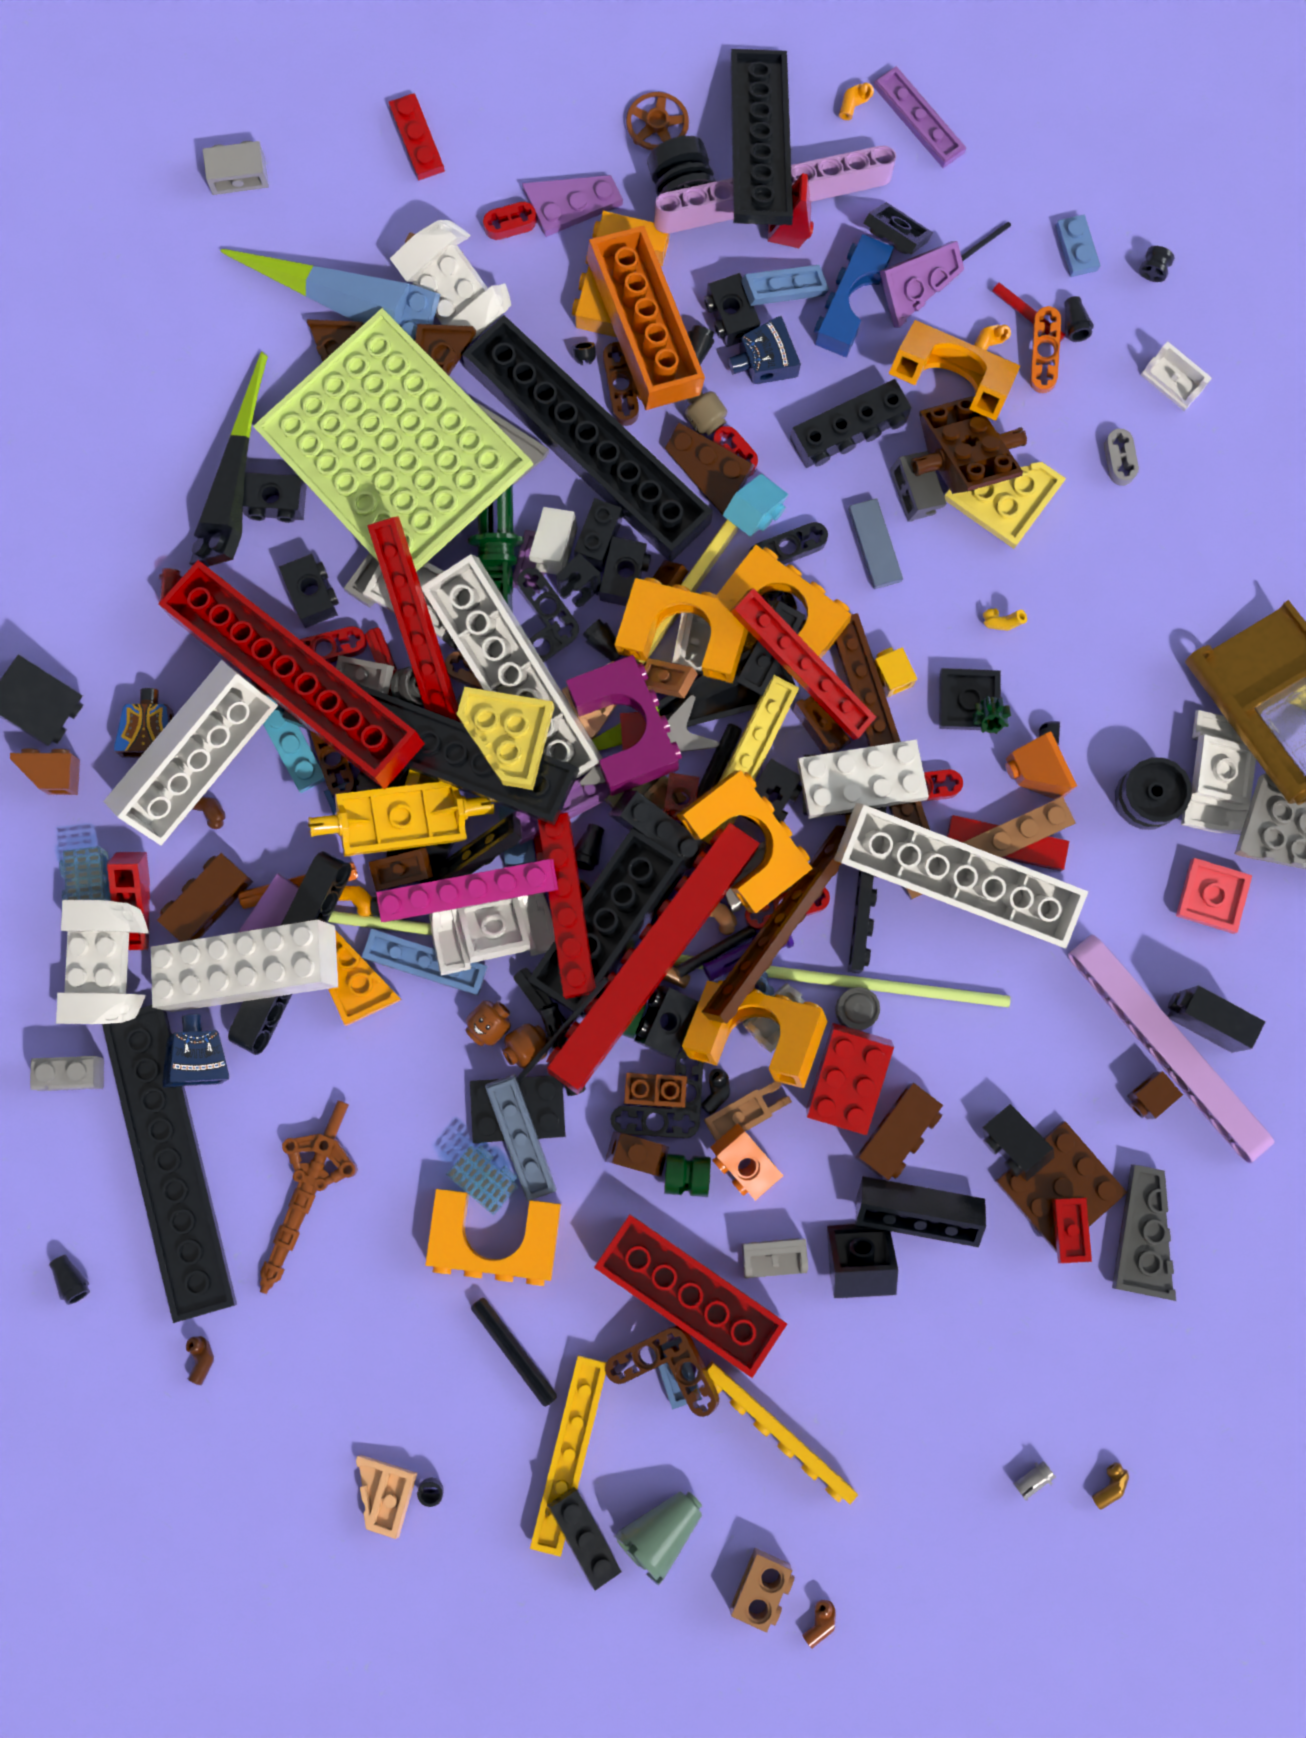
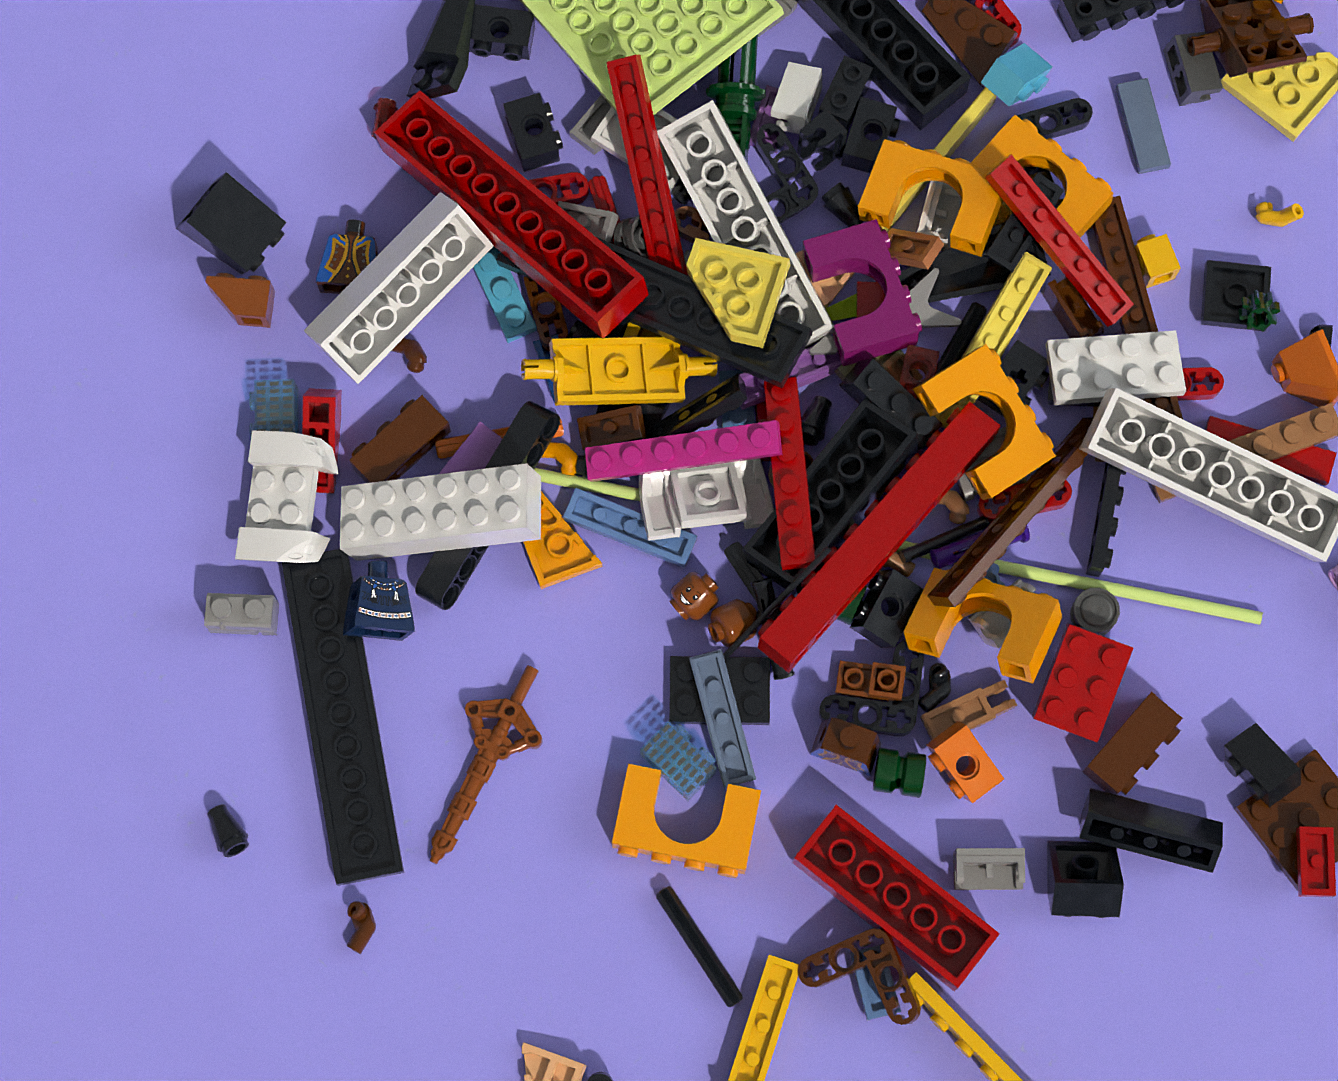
camera: 10 degrees right, 5 degrees down
(670, 573) = (922, 138): reddish brown plate -> none

